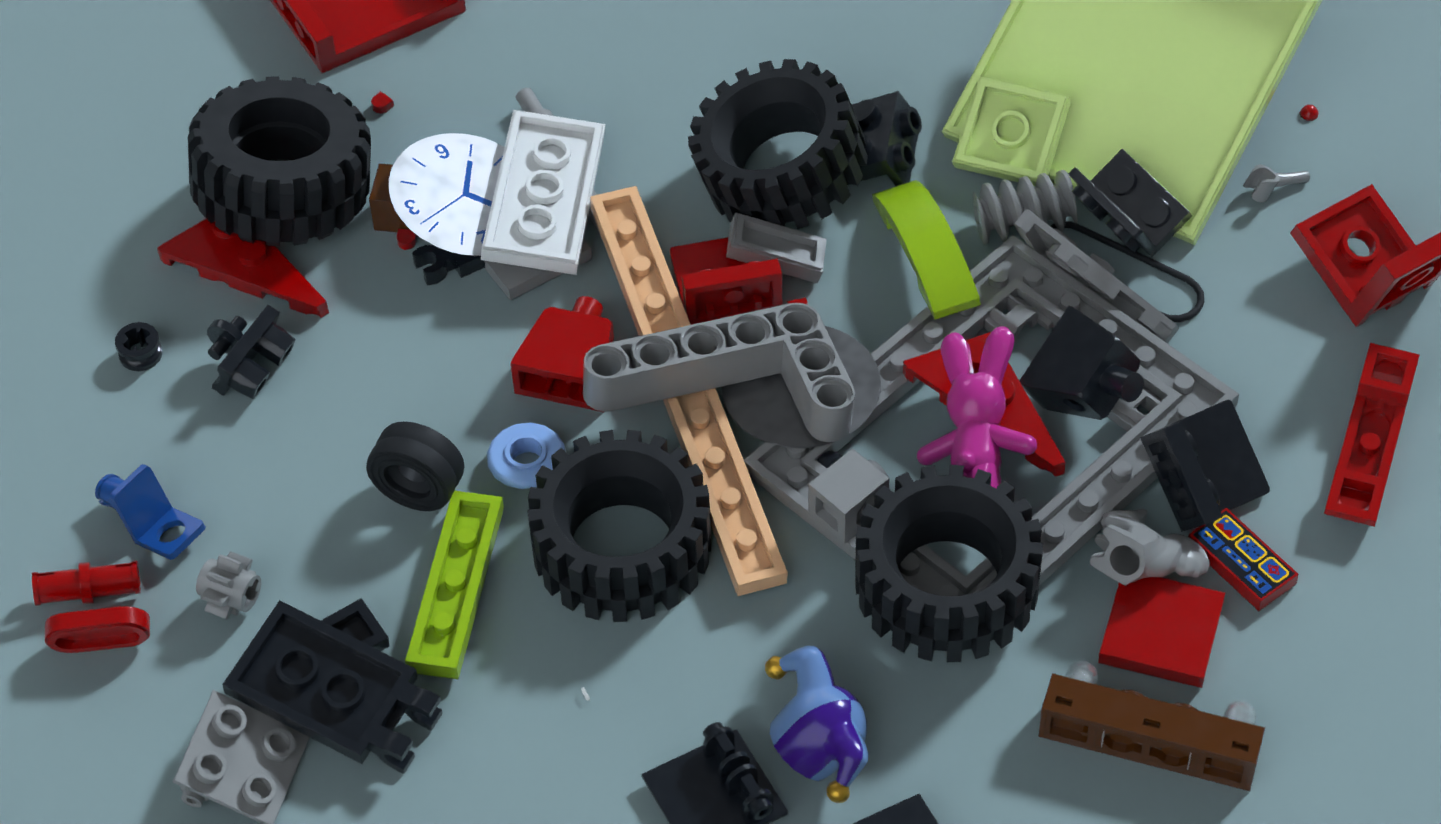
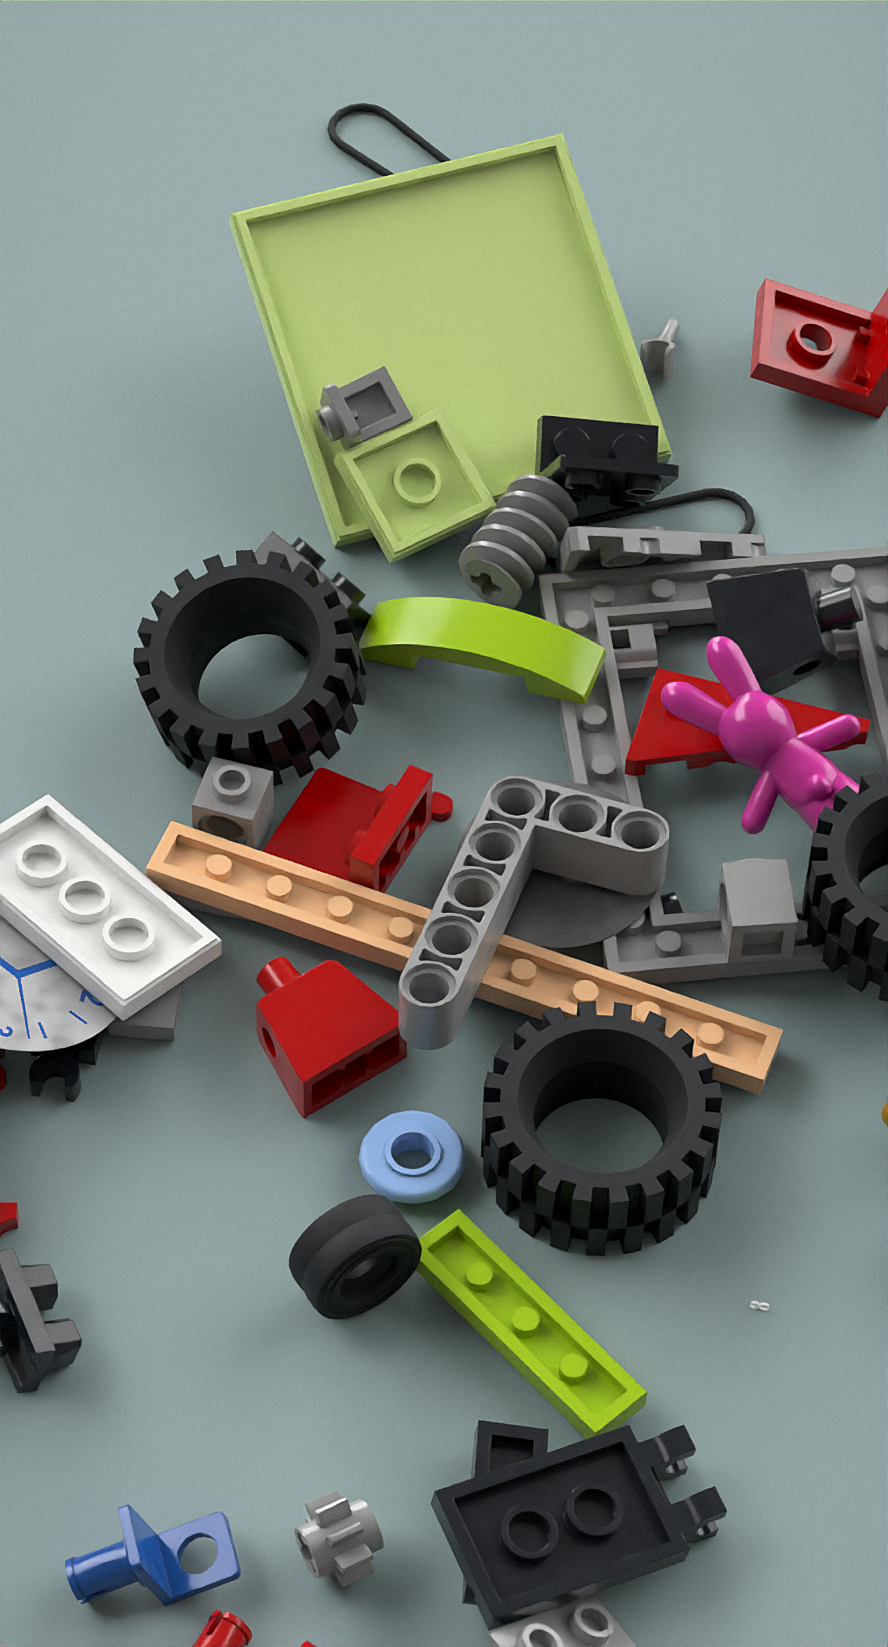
camera: 55 degrees left, 0 degrees up
(682, 210) = (235, 802): none -> light grey brick
(759, 240) = (356, 767): light grey tile -> none
(1020, 60) = (361, 408): none -> light grey bracket

